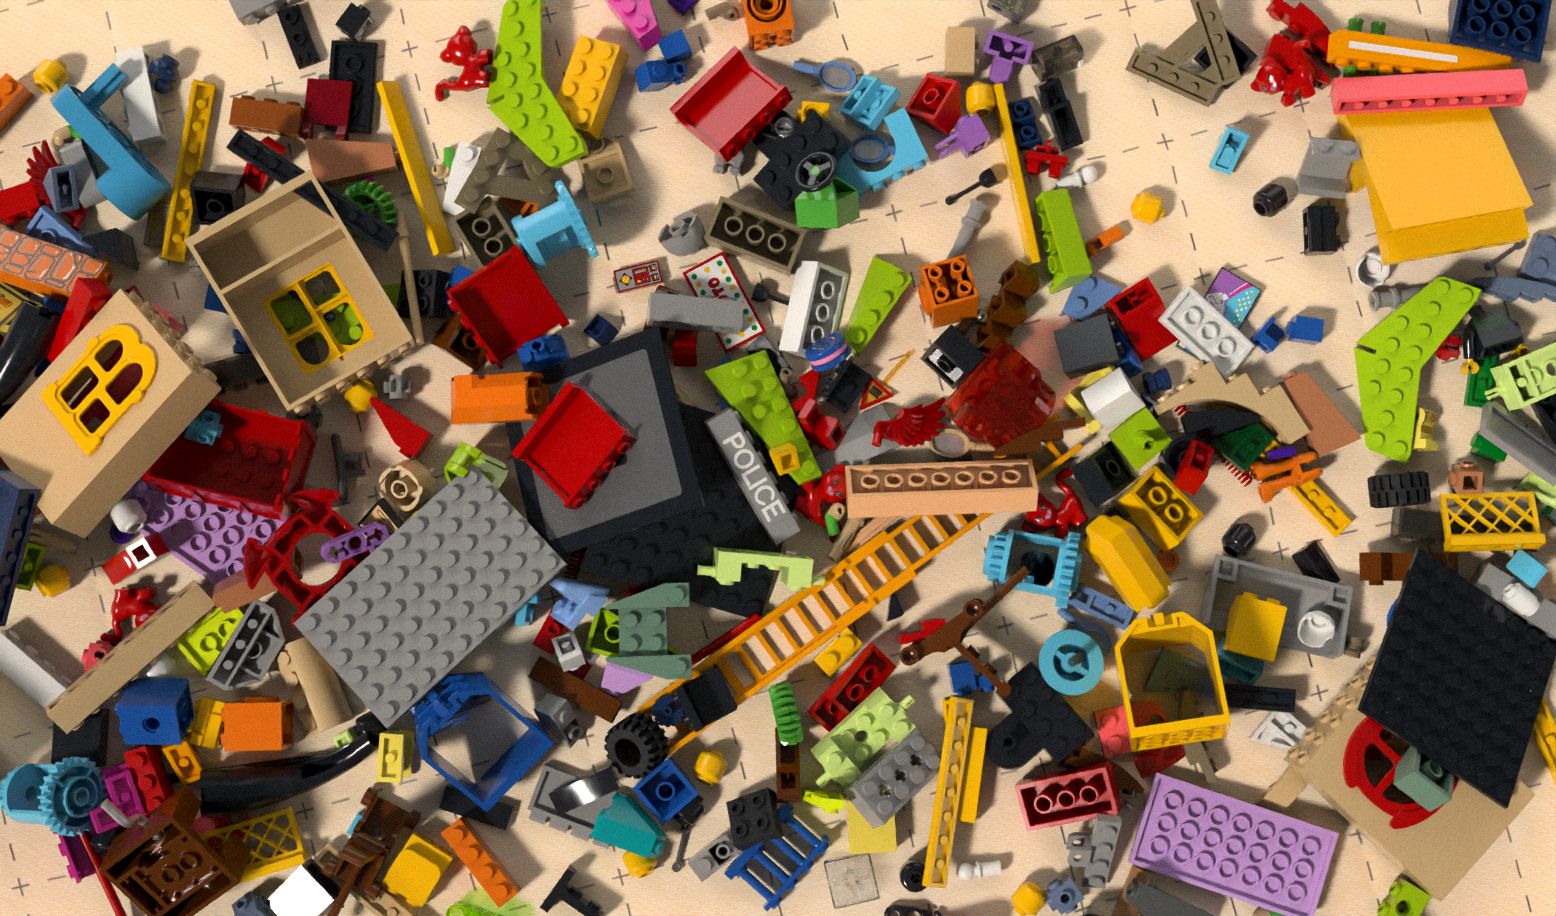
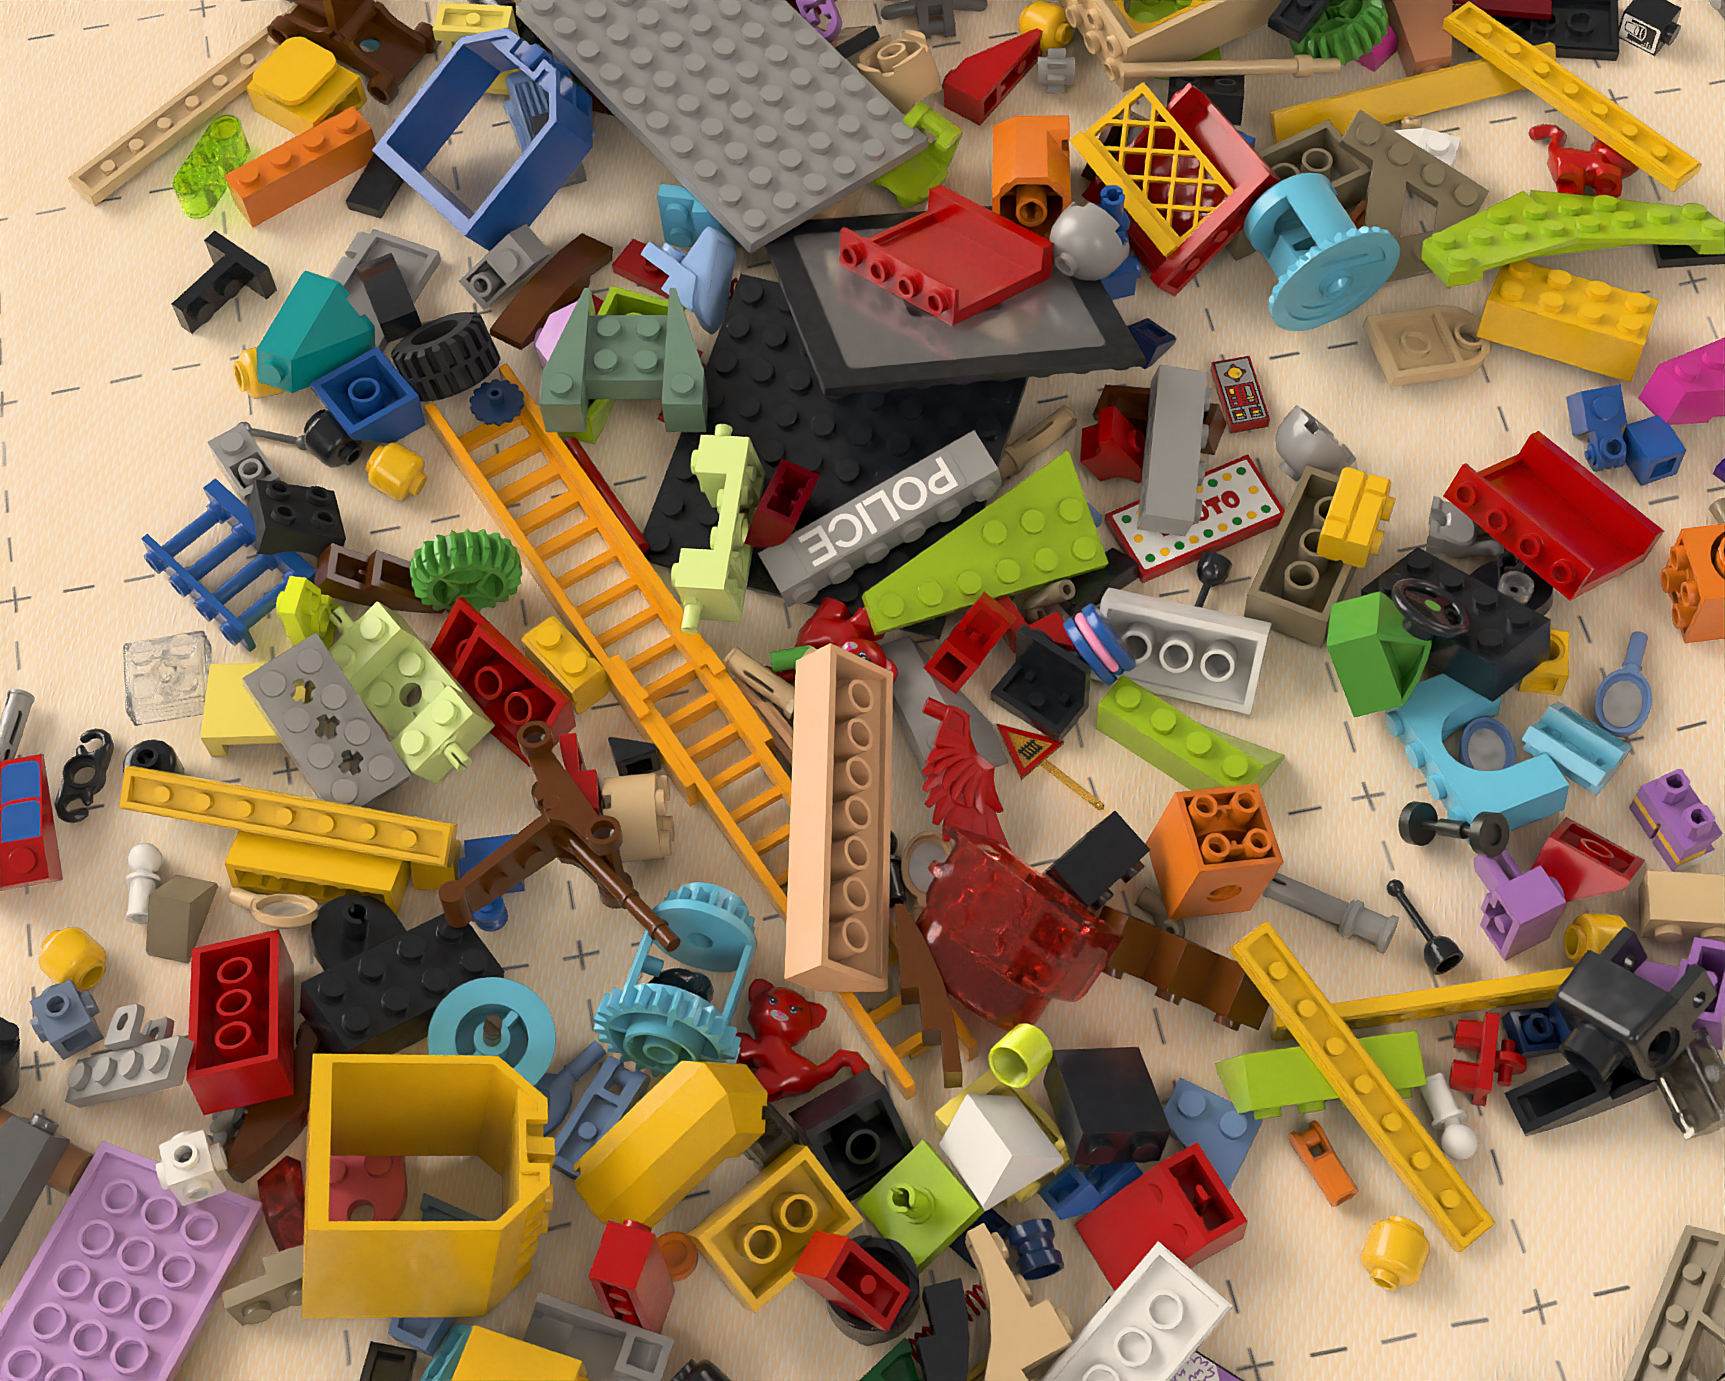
camera: 100 degrees right, 25 degrees down
(426, 74) = (1572, 96): none -> yellow tile
(508, 342) = (1137, 201): none -> yellow fence
(563, 363) = (1087, 243): none -> light grey cylinder
(568, 651) = (610, 265): white slope -> none
(704, 699) = (503, 441): black bracket -> none
(745, 211) = (1354, 518): none -> yellow brick
(748, 532) = (781, 505): none -> dark red brick
(785, 458) = (908, 564): yellow slope -> none
(909, 55) = (1677, 820): none -> medium lavender hips
(936, 150) = (1486, 835): none -> pearl dark grey wheel
(936, 599) = (641, 811): none -> tan brick
(995, 846) = (177, 917): none -> dark tan slope
(999, 789) = (277, 910): none -> tan piece
(1039, 89) = (1625, 1017): none -> black piece
(1069, 388) = (1020, 1055): none -> neon yellow piece
(1073, 221) = (1362, 1087): none -> yellow tile
(1142, 802) = (192, 1167): none -> white brick
(1203, 572) = (632, 1276): none -> red brick

